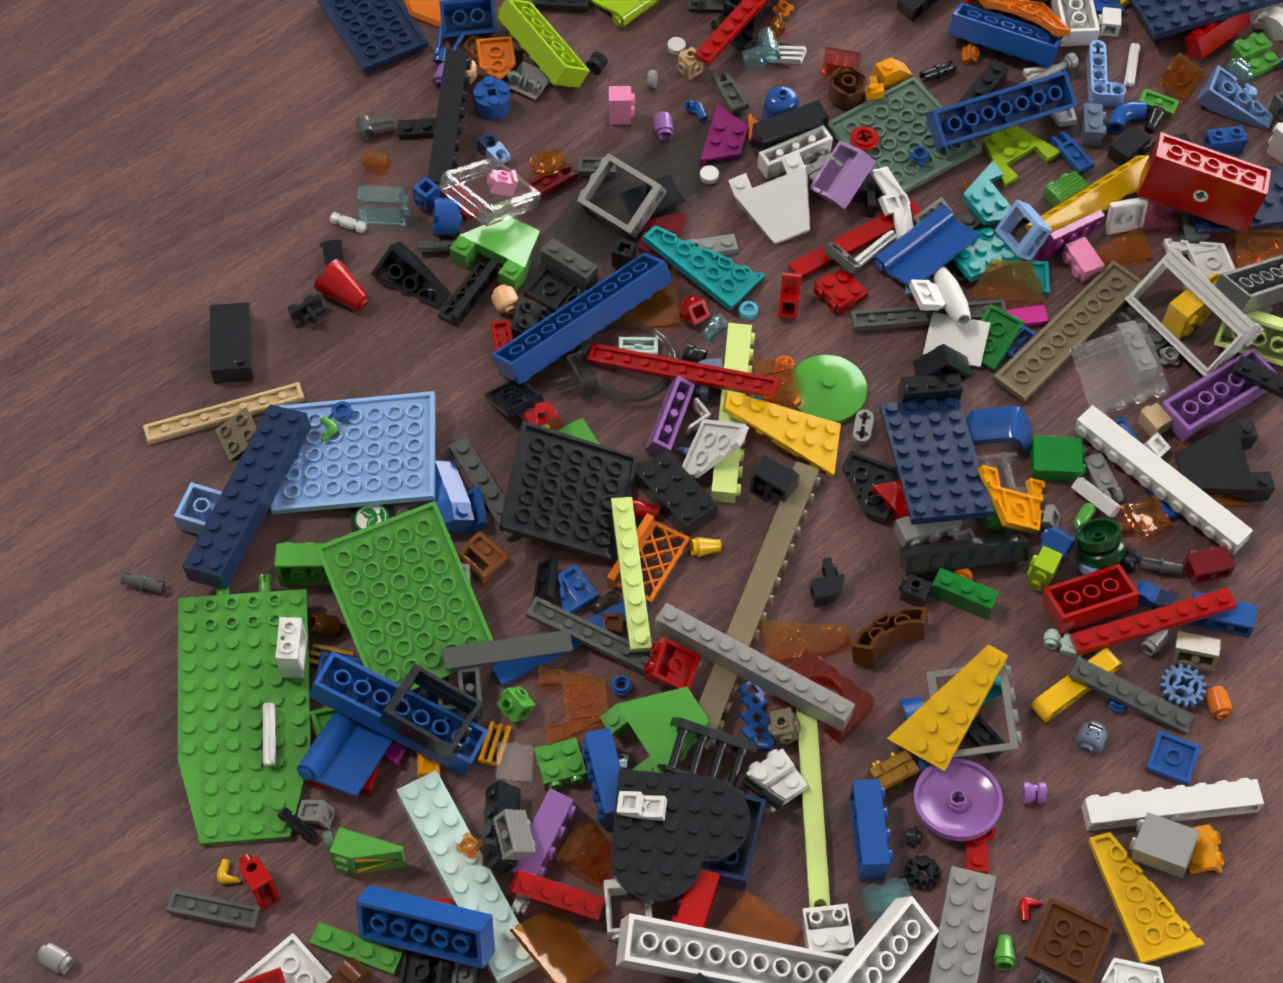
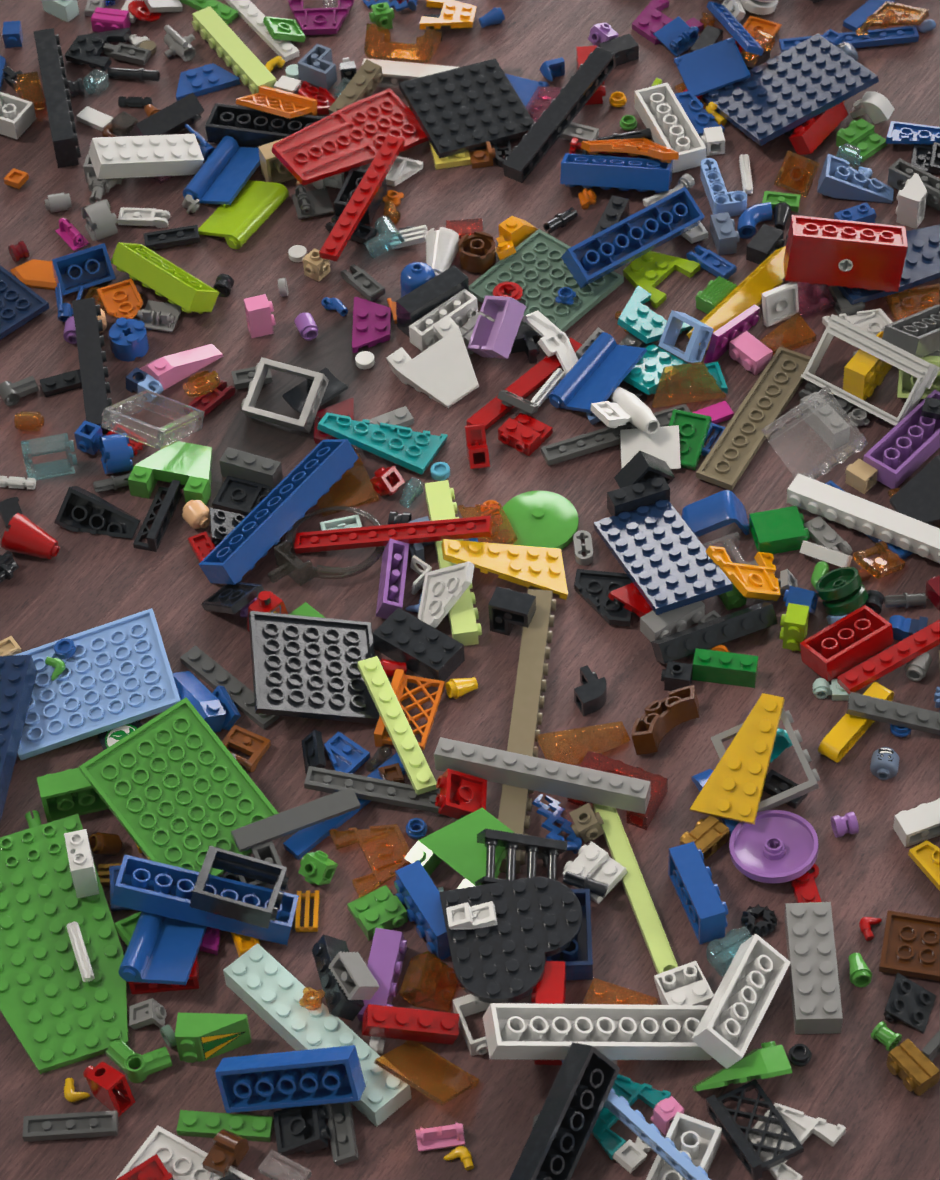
camera: 10 degrees left, 10 degrees down
(296, 824) = (132, 1028): black axle -> none
(304, 864) = (128, 1060): none -> bright green piece
(502, 182) = (164, 406): bright pink brick -> none
(514, 762) = (331, 920): clear piece -> none
(532, 137) = (178, 366): none -> bright pink wedge
(620, 256) = (299, 449): black brick -> none
(812, 78) = (441, 248): none -> white cone
(914, 837) = (741, 891): black plate -> none
(1157, 445) = (871, 495): white plate -> none

